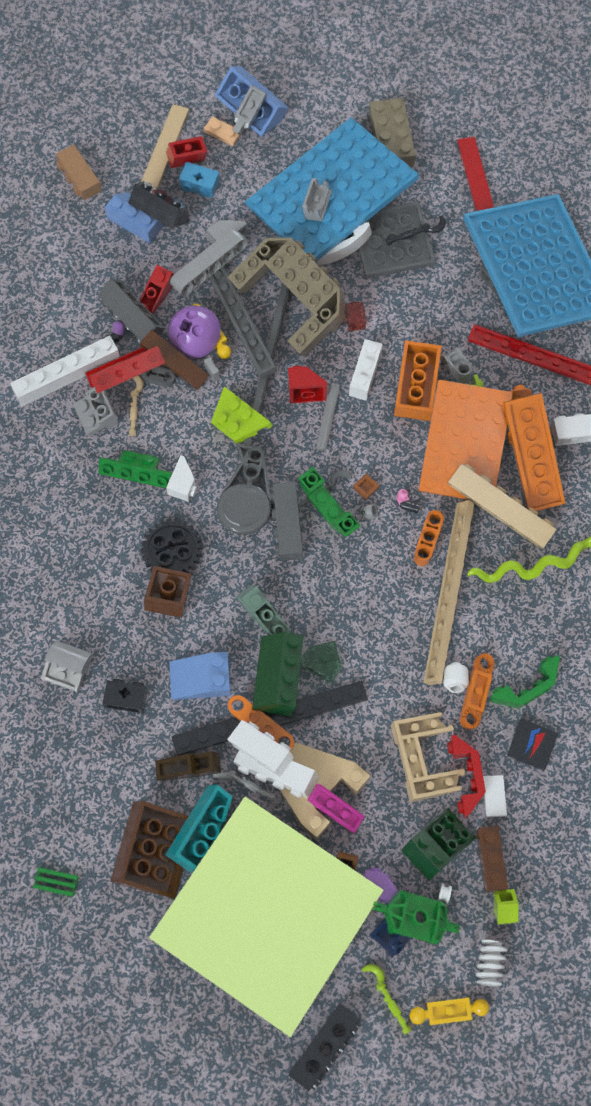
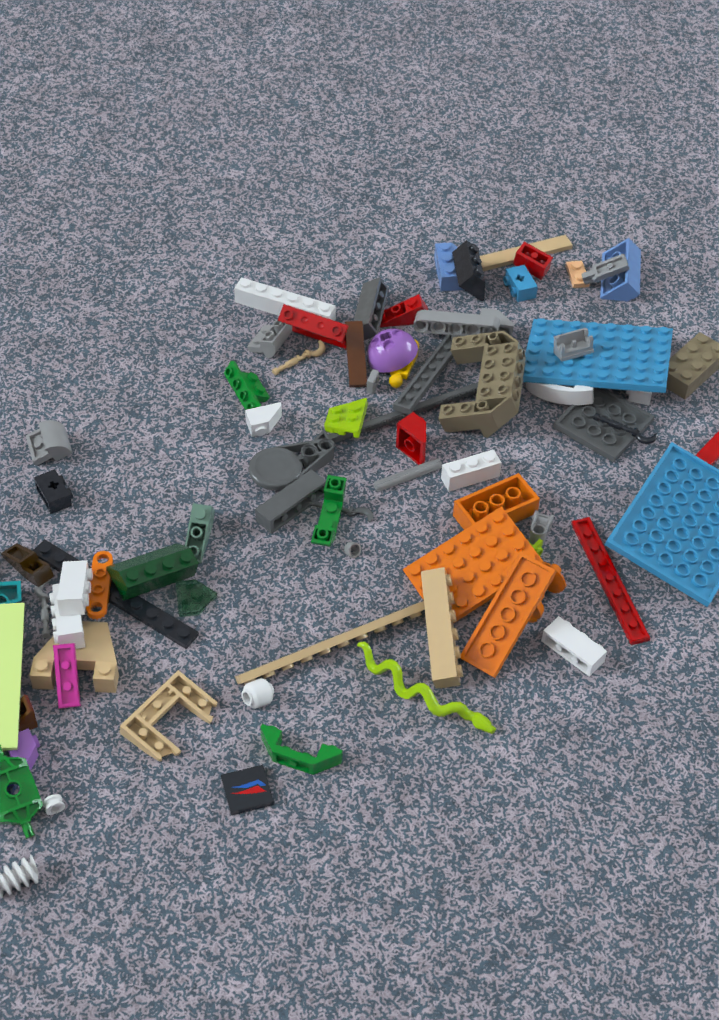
camera: 50 degrees right, 20 degrees down
(77, 172) = (449, 219): medium nougat brick -> none
(118, 331) = (347, 315): medium lavender arm -> none
(156, 379) = (332, 358): dark grey beam -> none
(167, 533) = (200, 447): black gear -> none
(167, 592) = (160, 462): reddish brown slope -> none
(200, 676) = (112, 528): medium blue slope -> none
(355, 316) = (510, 437): clear red brick -> none
(366, 487) = (370, 533): dark orange plate -> none
(404, 502) = (383, 568): arm -> none
(432, 530) = (365, 599): orange beam -> none
(438, 844) = (96, 772): dark green slope -> none
(461, 749) = (152, 772): red slope -> none
(477, 691) = (254, 717): orange plate -> none
(491, 859) = (111, 819): reddish brown brick -> none
(494, 796) = (174, 790): white tile -> none
(506, 906) = (75, 854): lime brick -> none

